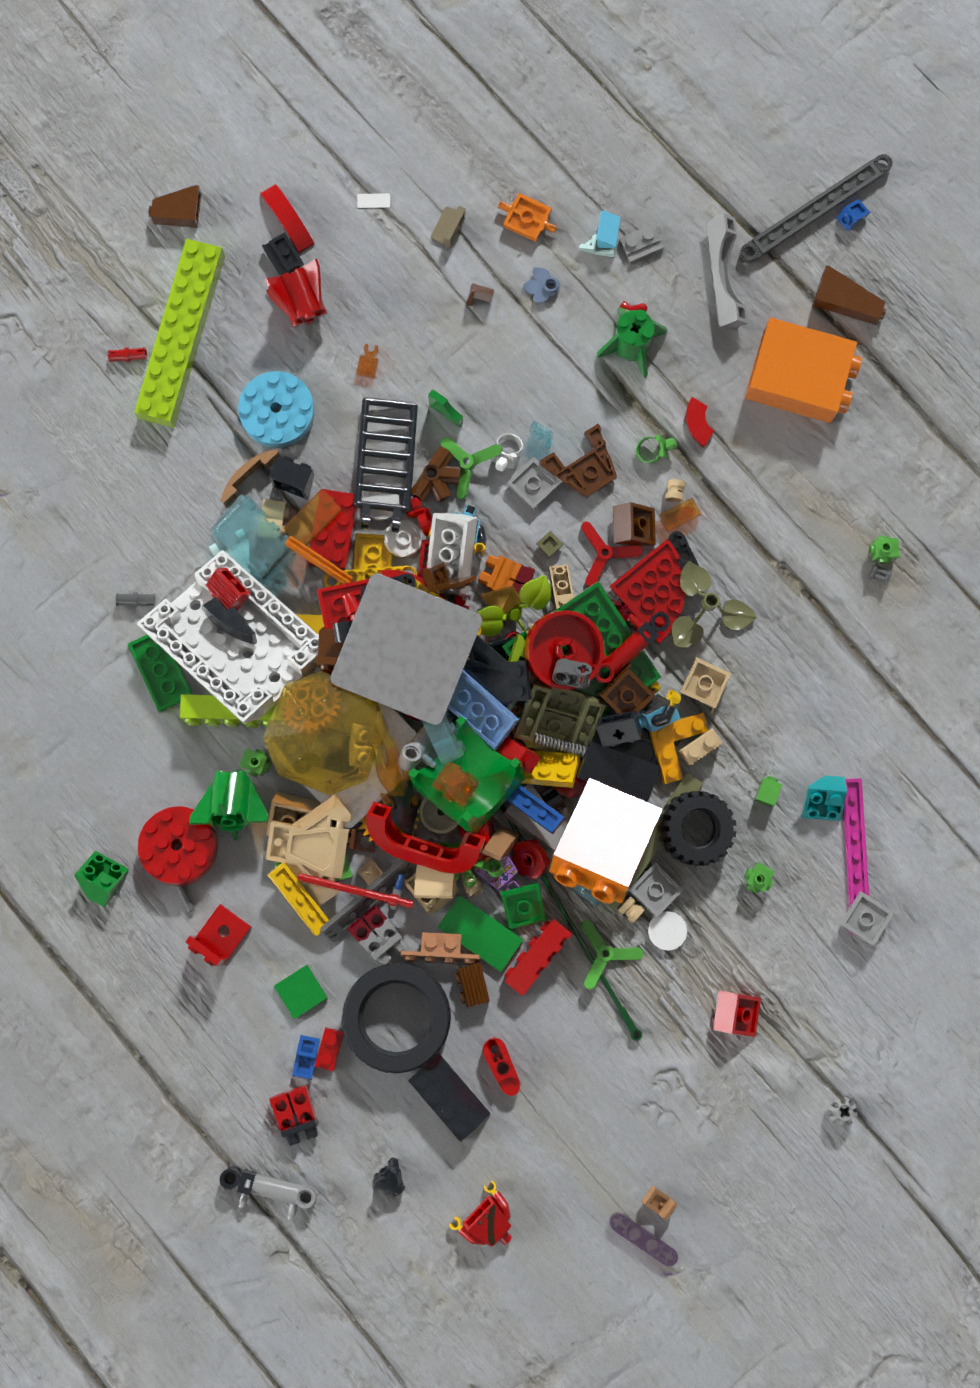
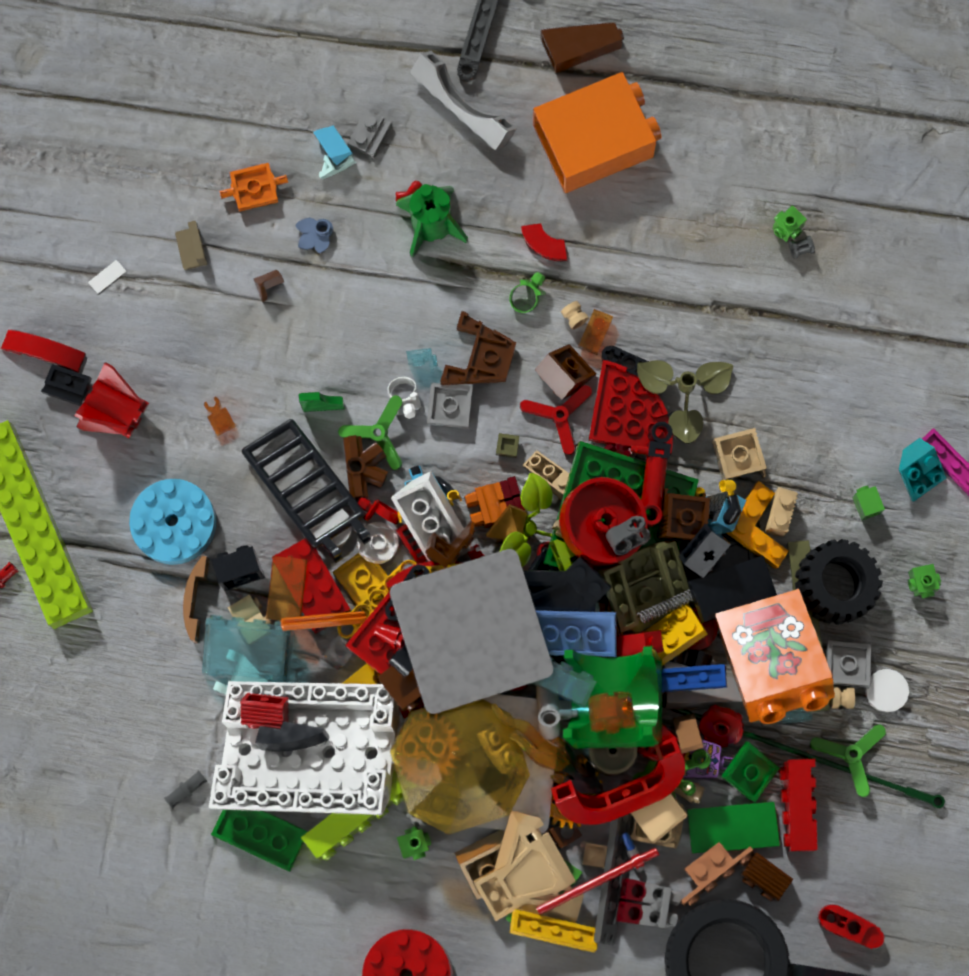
camera: 35 degrees left, 5 degrees down
(230, 803) = (423, 898): green brick -> none

